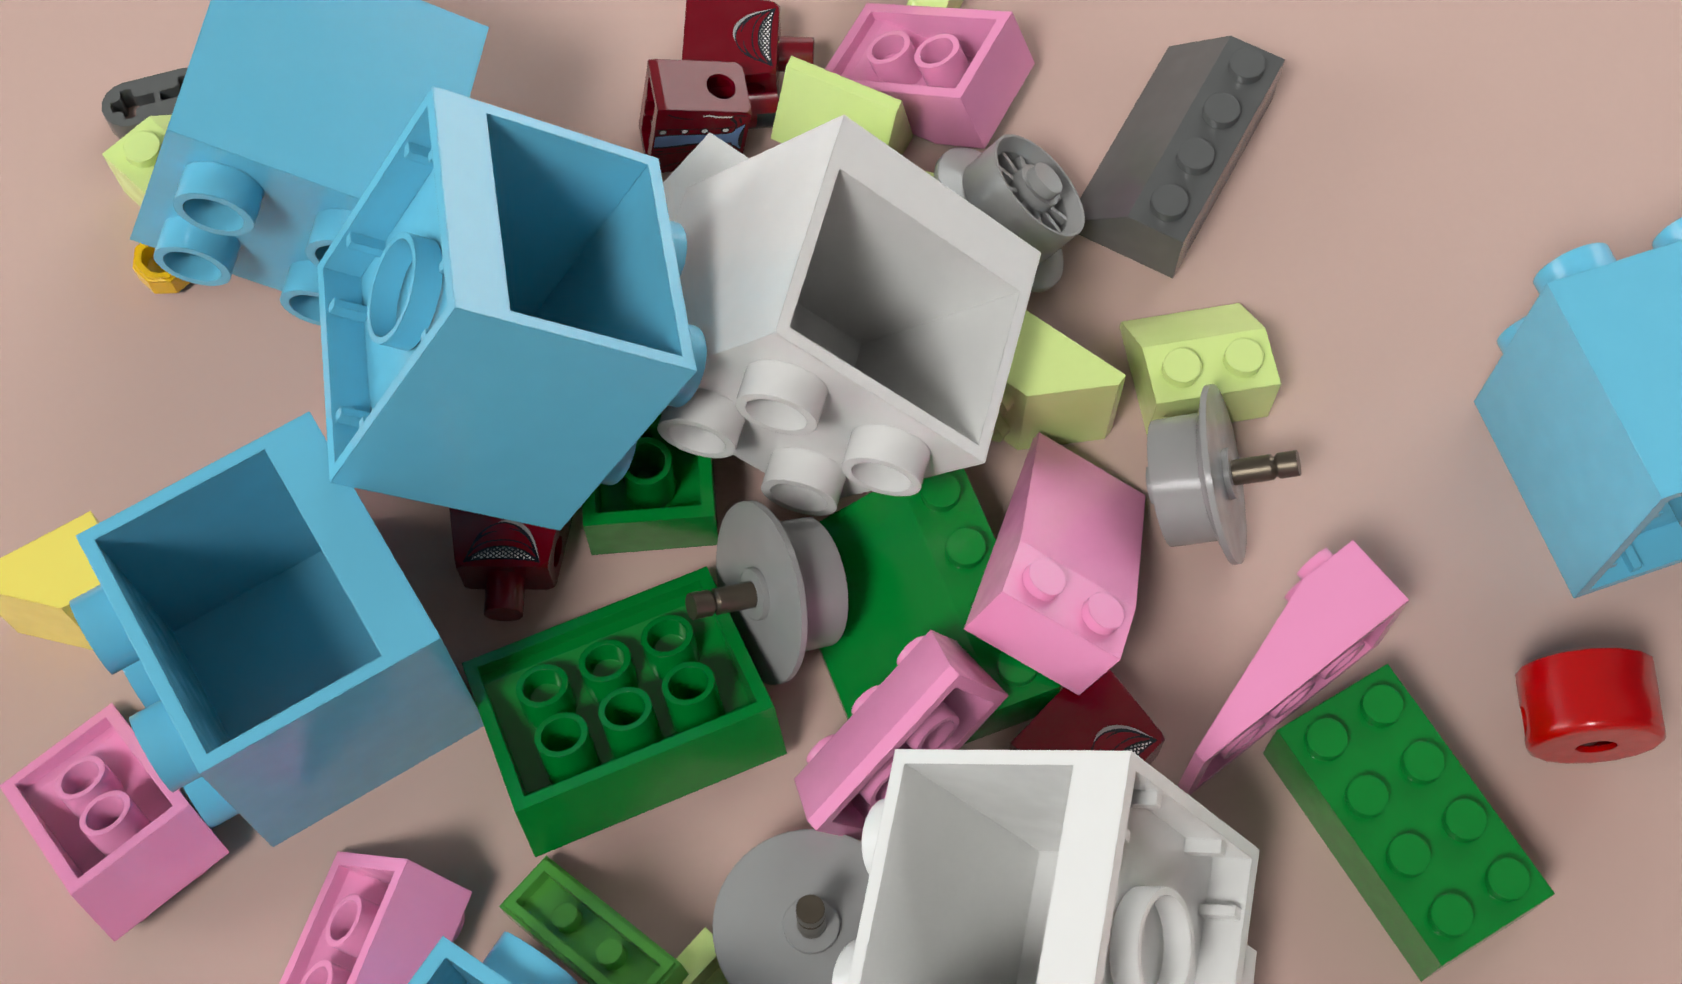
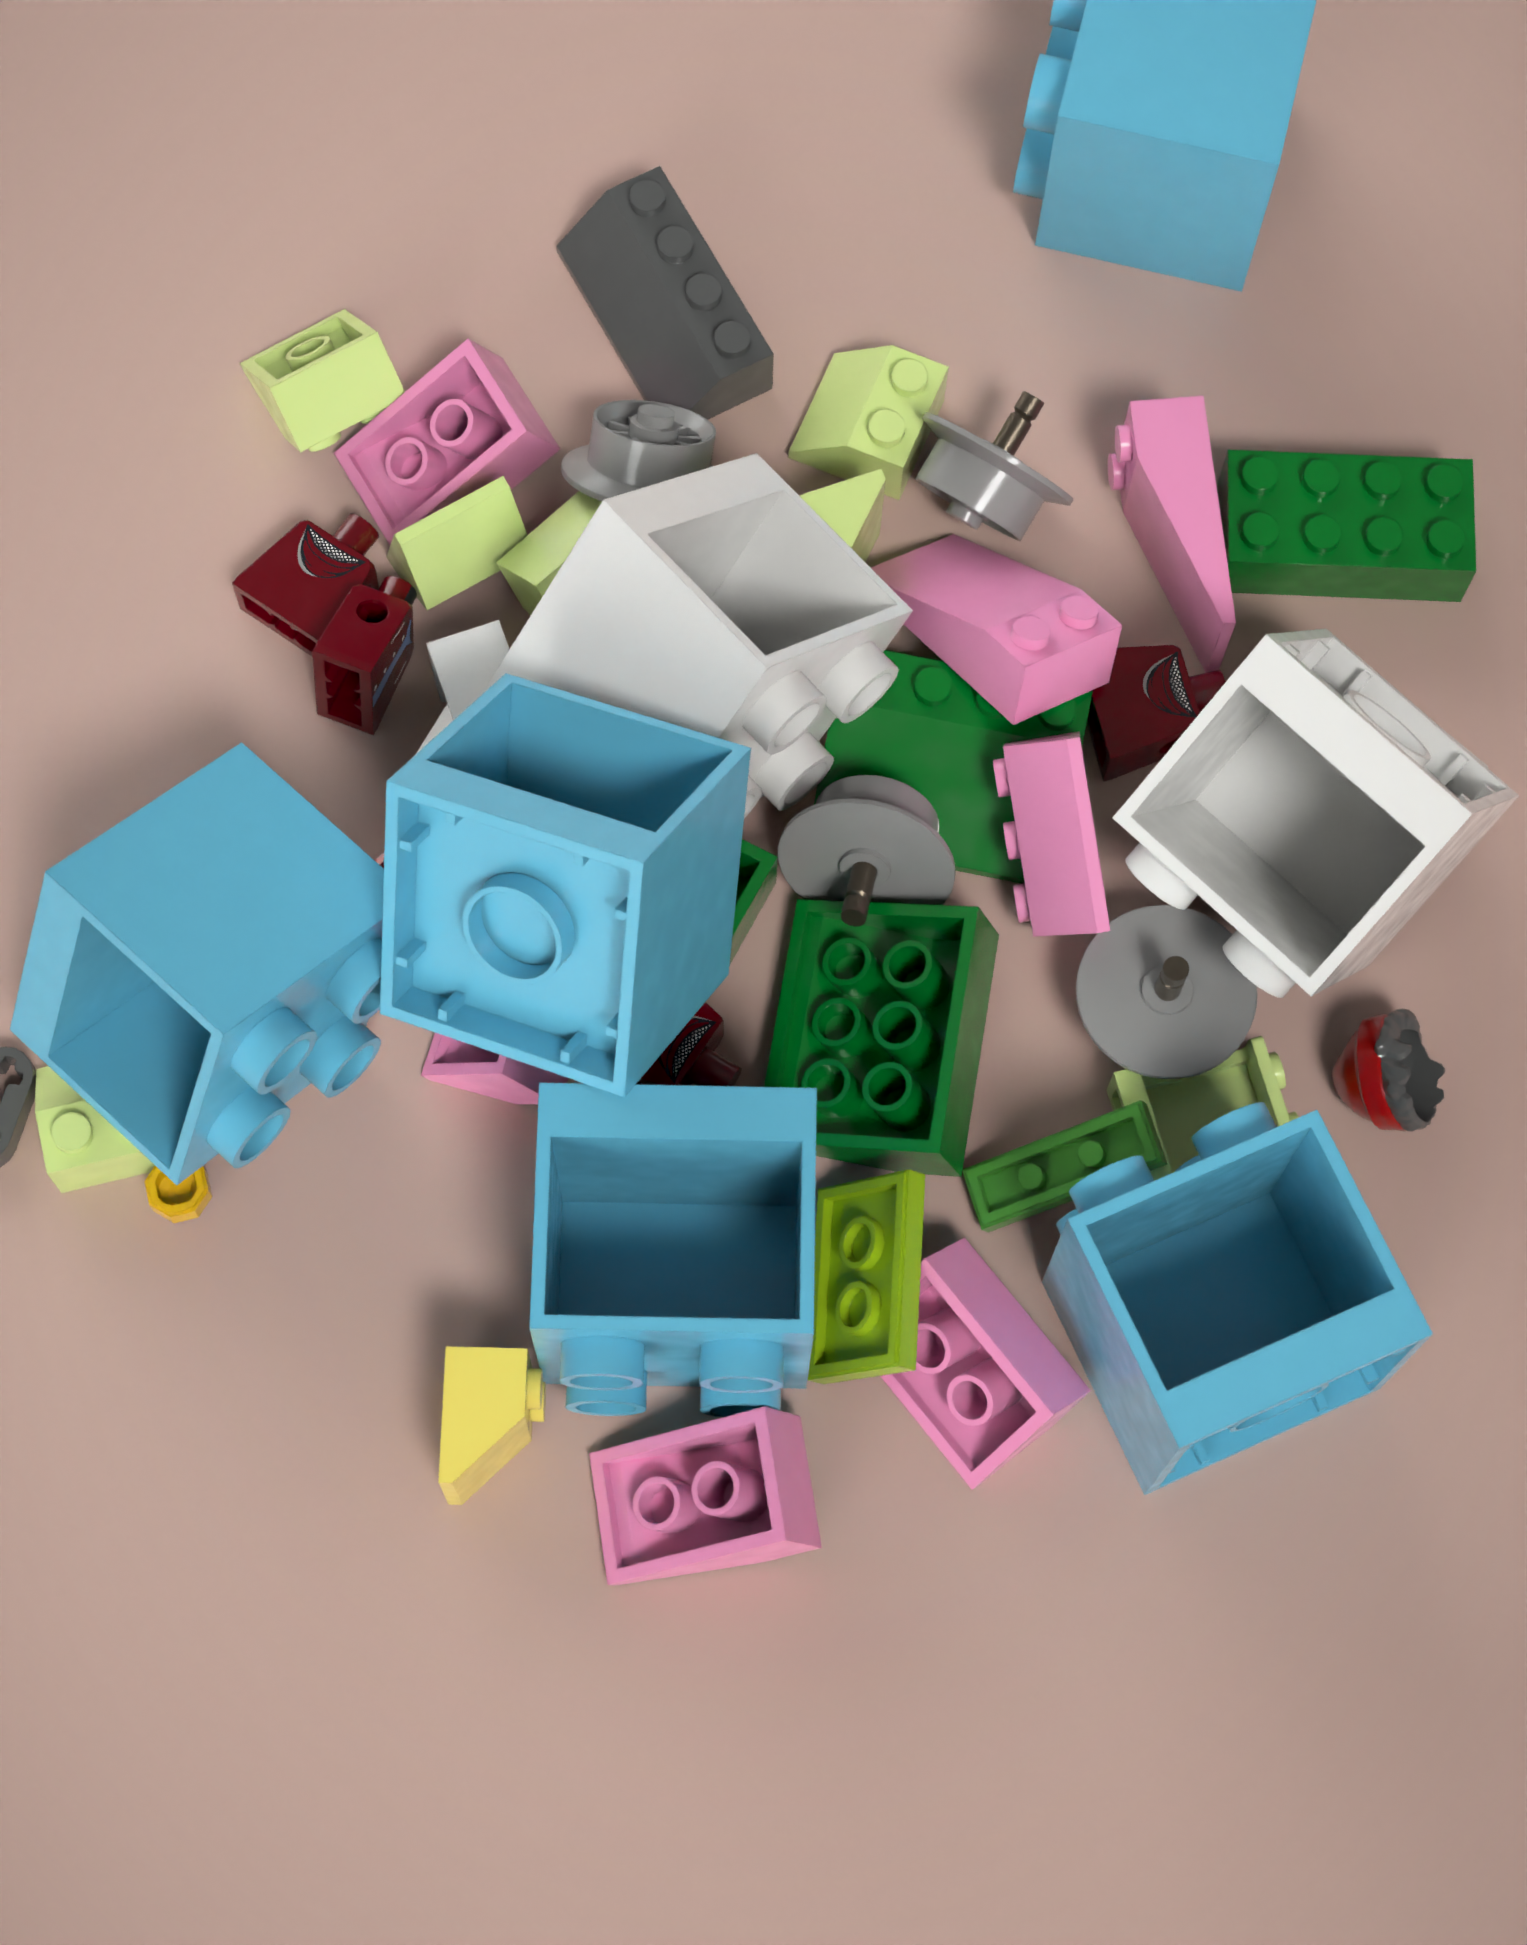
camera: 60 degrees left, 5 degrees up
(378, 828) = (867, 1277): none -> lime tile
(1590, 698) = (1348, 337): red piece -> none

